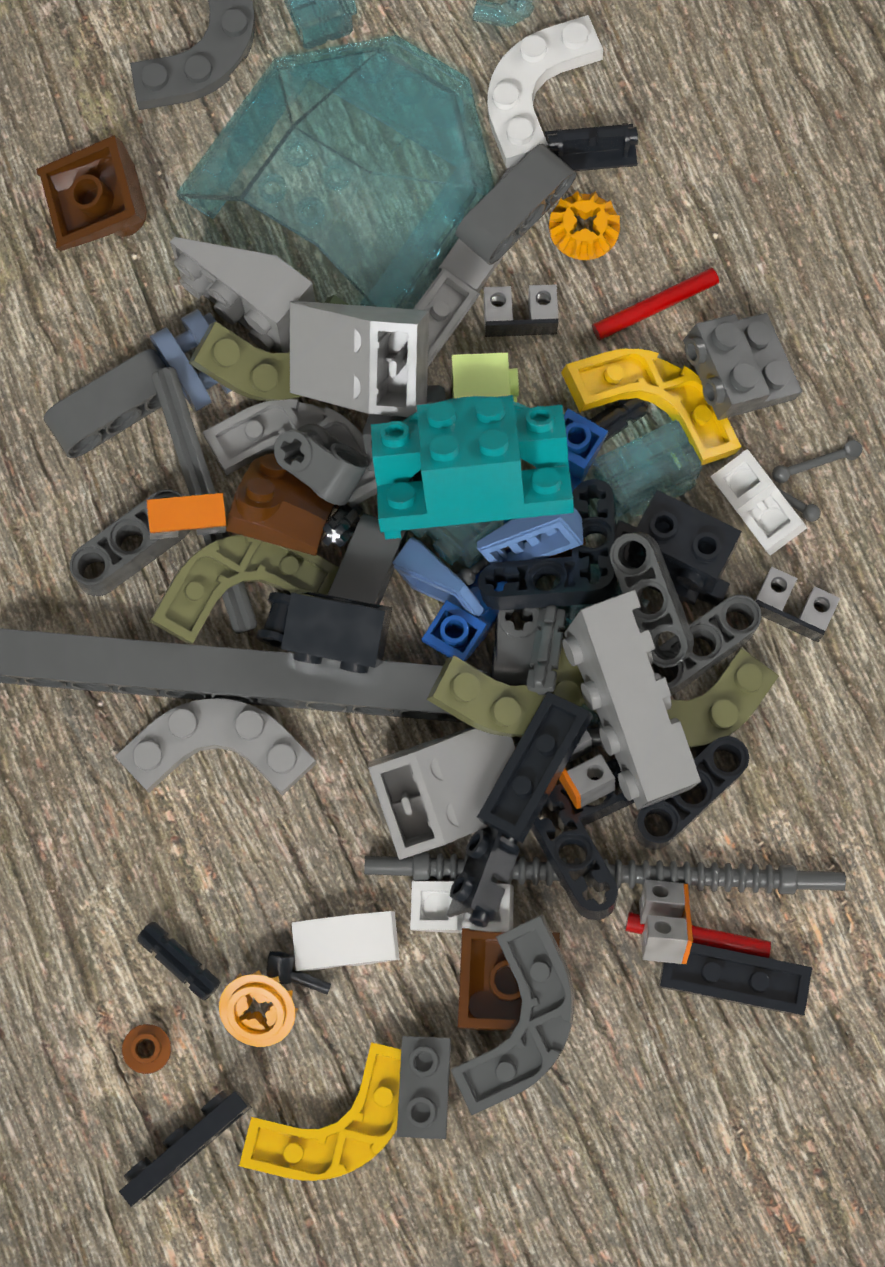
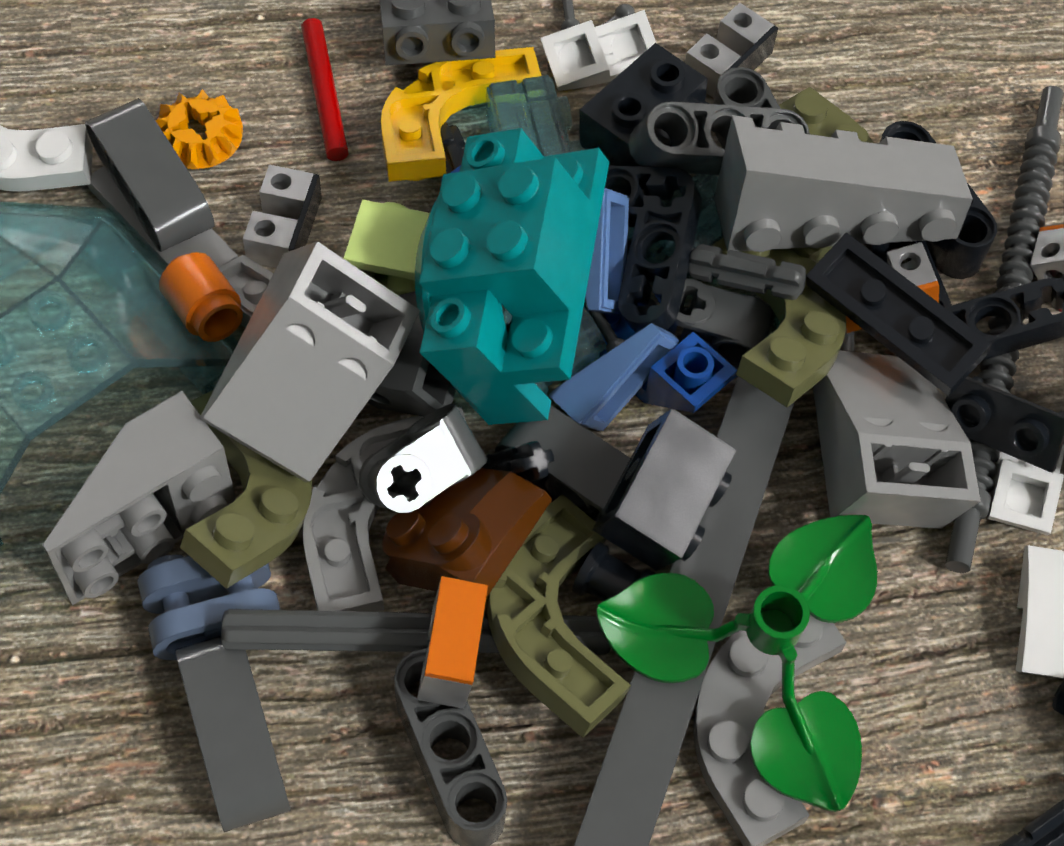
camera: 80 degrees left, 15 degrees down
(242, 656) = (818, 570): none -> green plant
(414, 273) = (201, 296): none -> orange brick
(595, 146) = (105, 80): black hinge -> none

